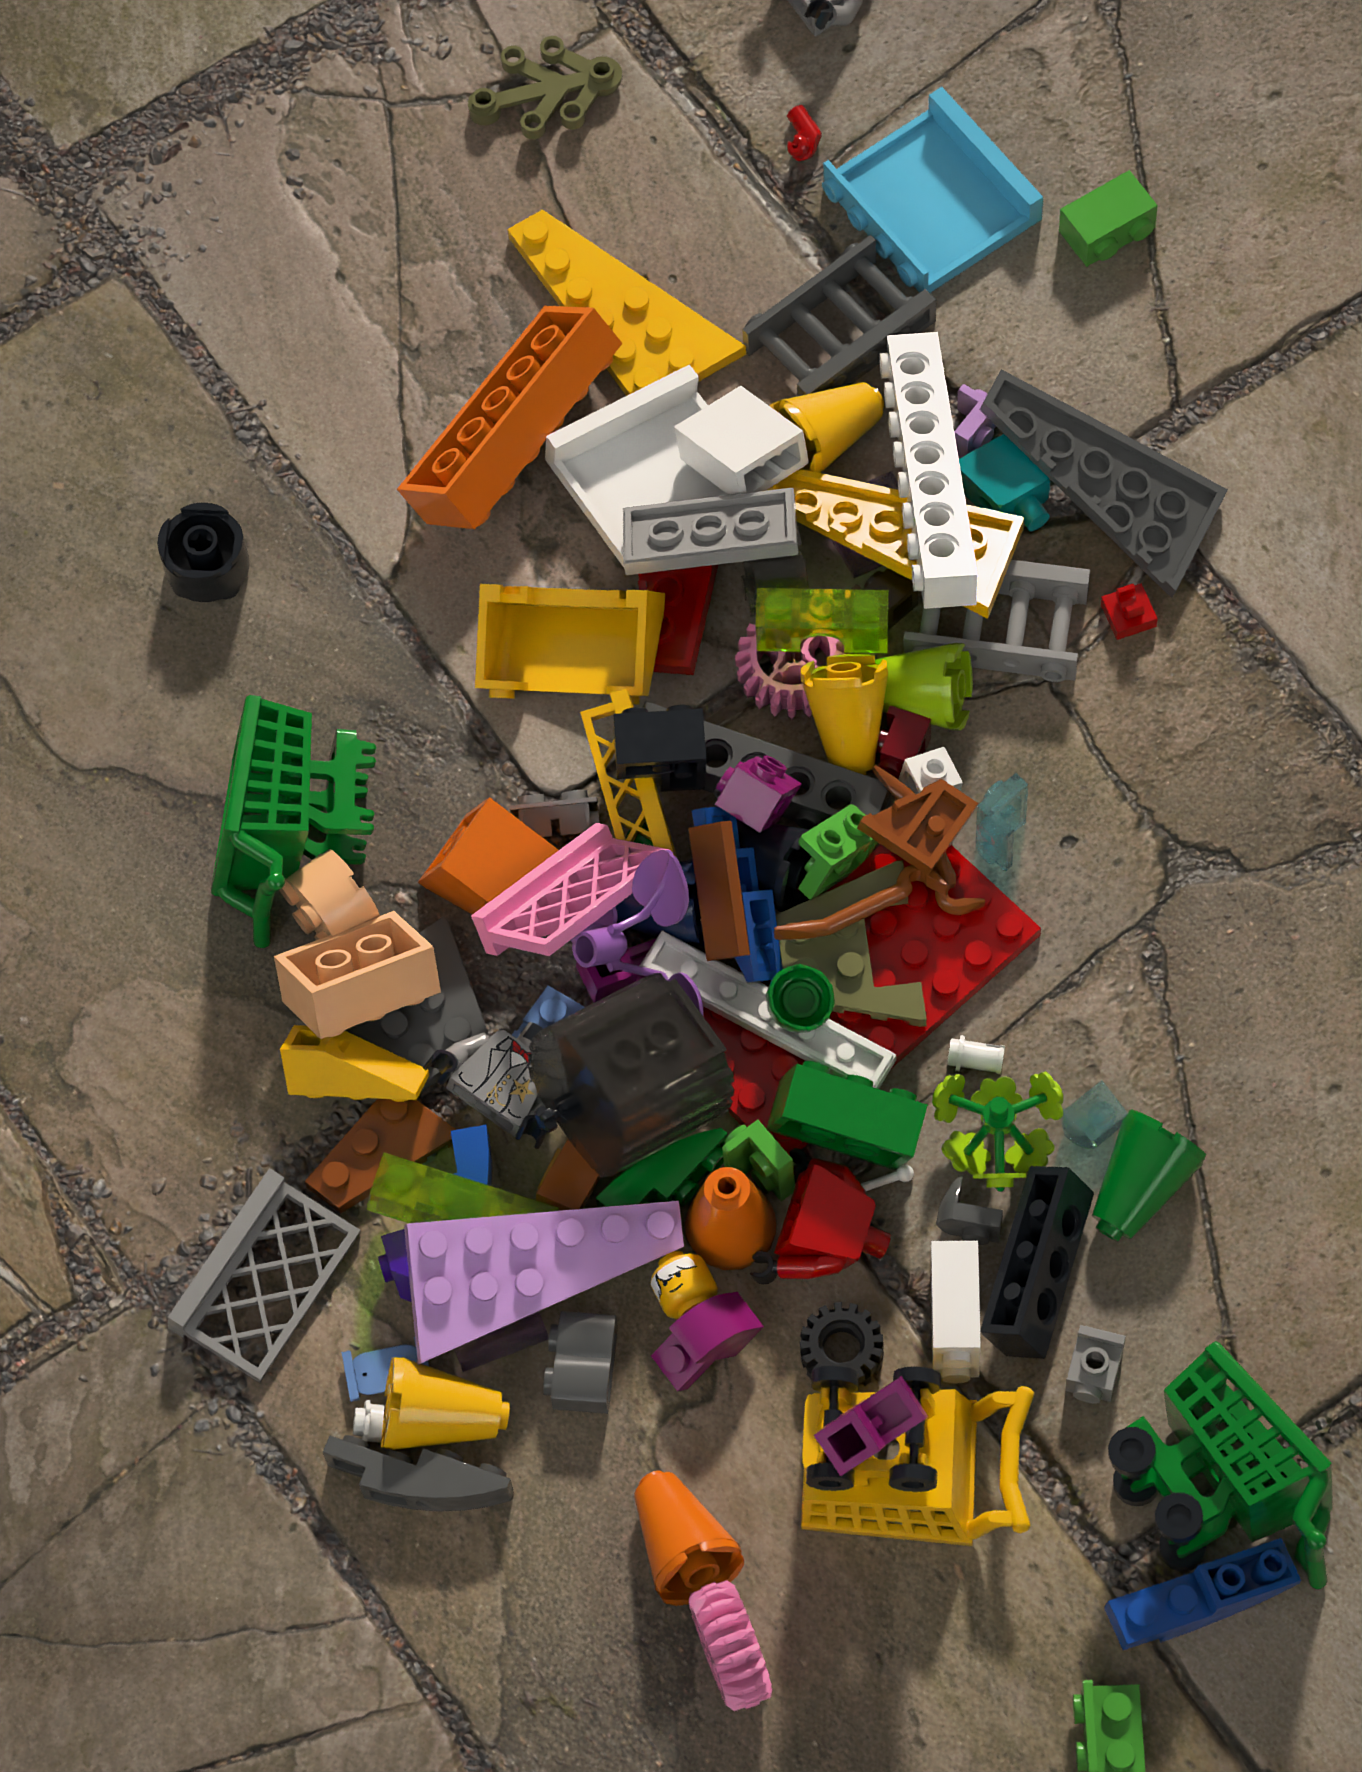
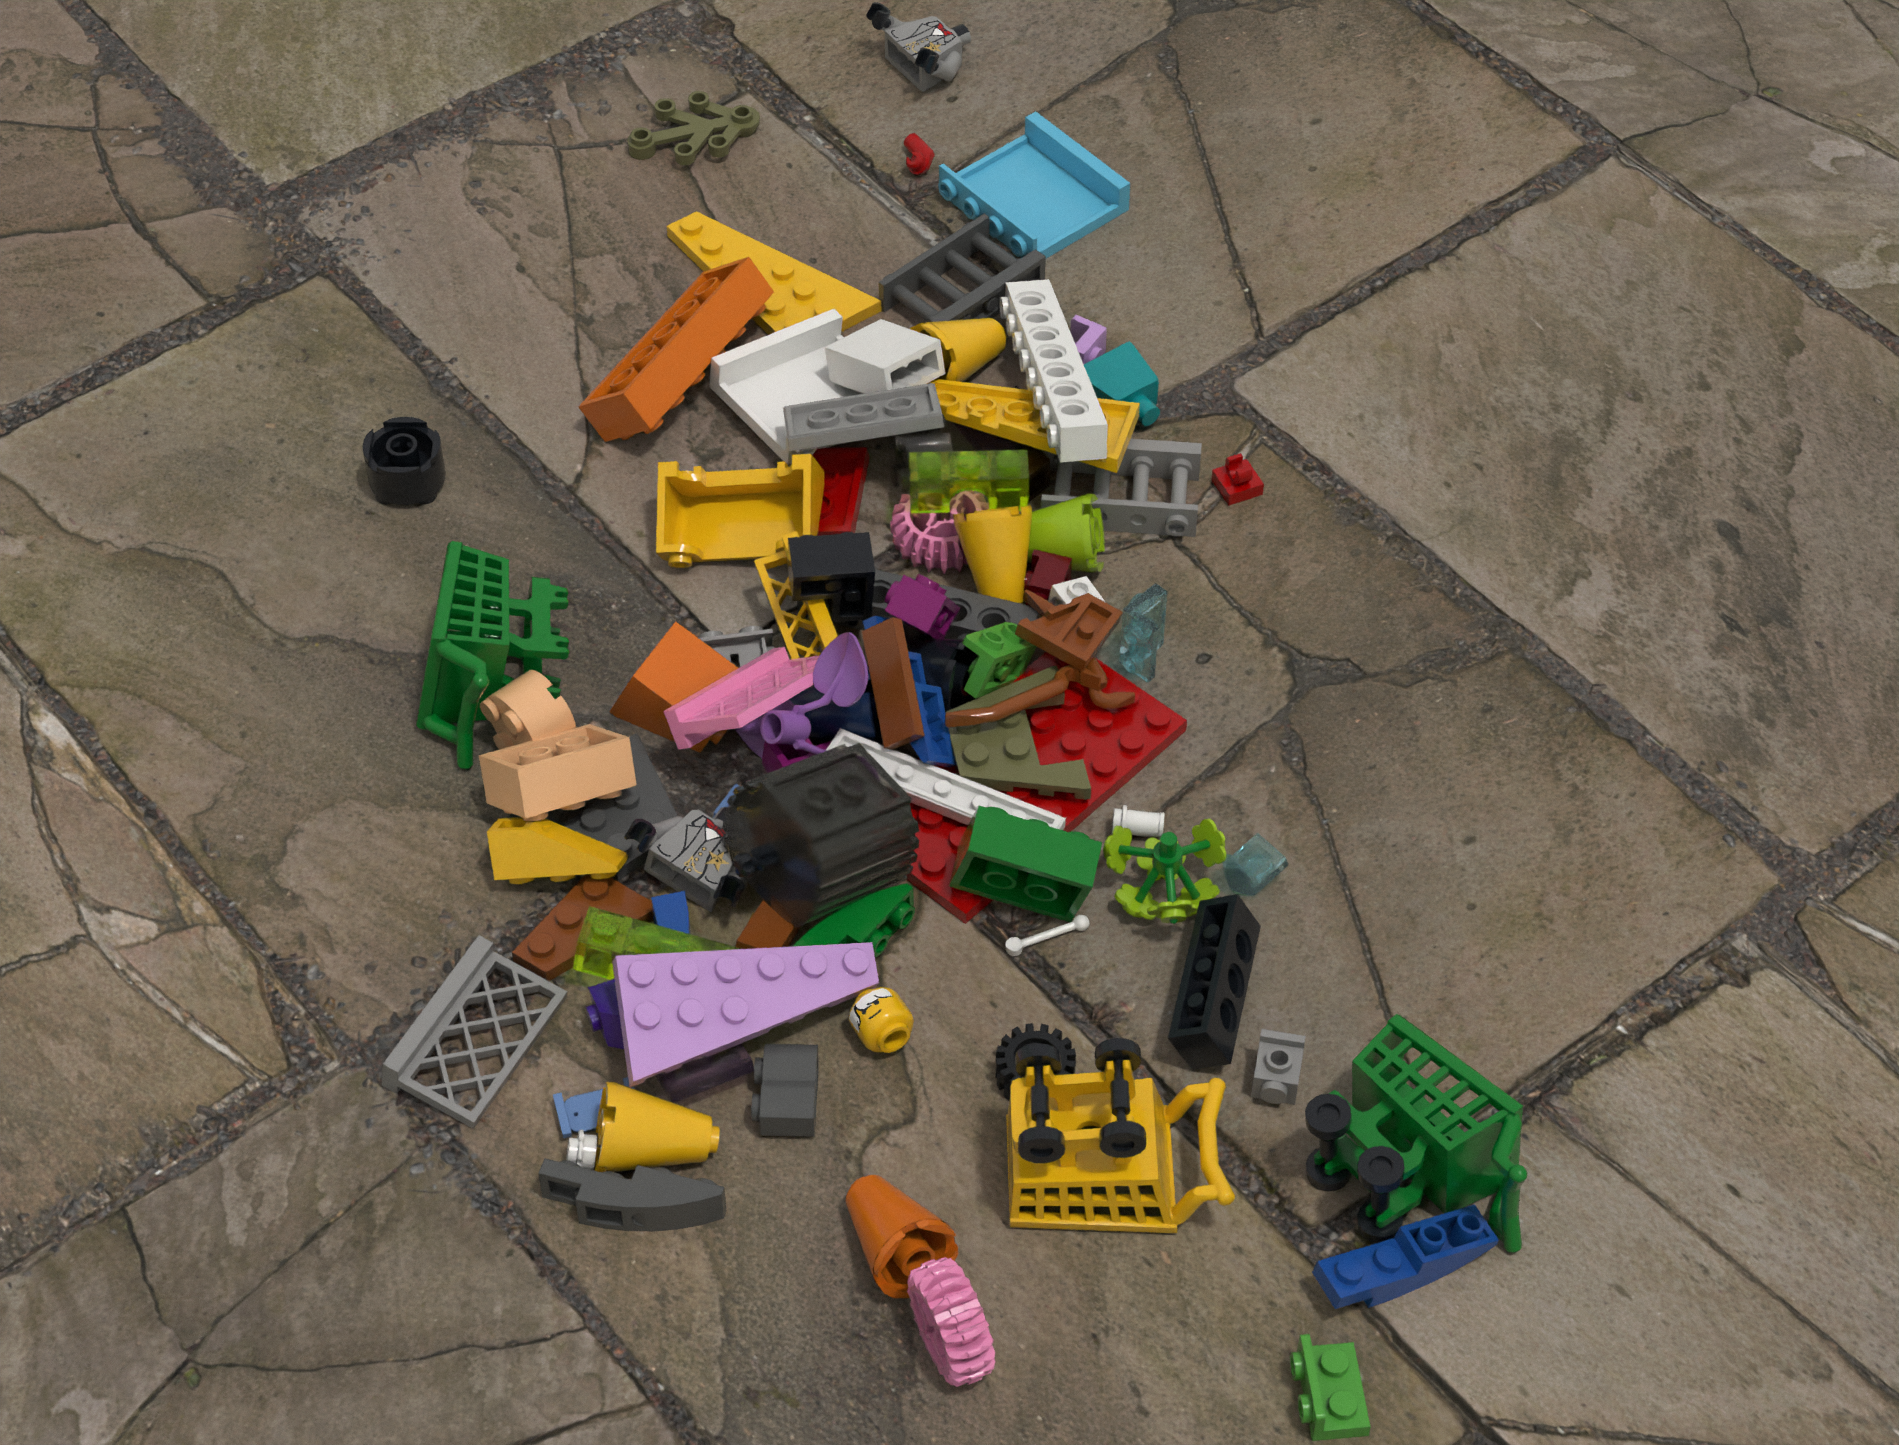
camera: 10 degrees left, 15 degrees down
(706, 1334) = (903, 1055): magenta brick -> none
(730, 1220) = (921, 957): orange cone -> none
(758, 1150) = (947, 904): bright green bracket -> none
(800, 998) = (973, 769): green hair -> none
(823, 1225) = (1009, 962): red torso -> none
(870, 1425) = (1076, 1091): magenta brick -> none
(955, 1310) = (1143, 1013): white brick -> none
(967, 1220) = (1146, 953): dark grey plate -> none
(1108, 218) = (1186, 202): bright green brick -> none
(1127, 489) = (1228, 388): dark grey wing -> none
(1142, 1175) = (1306, 903): green cone -> none

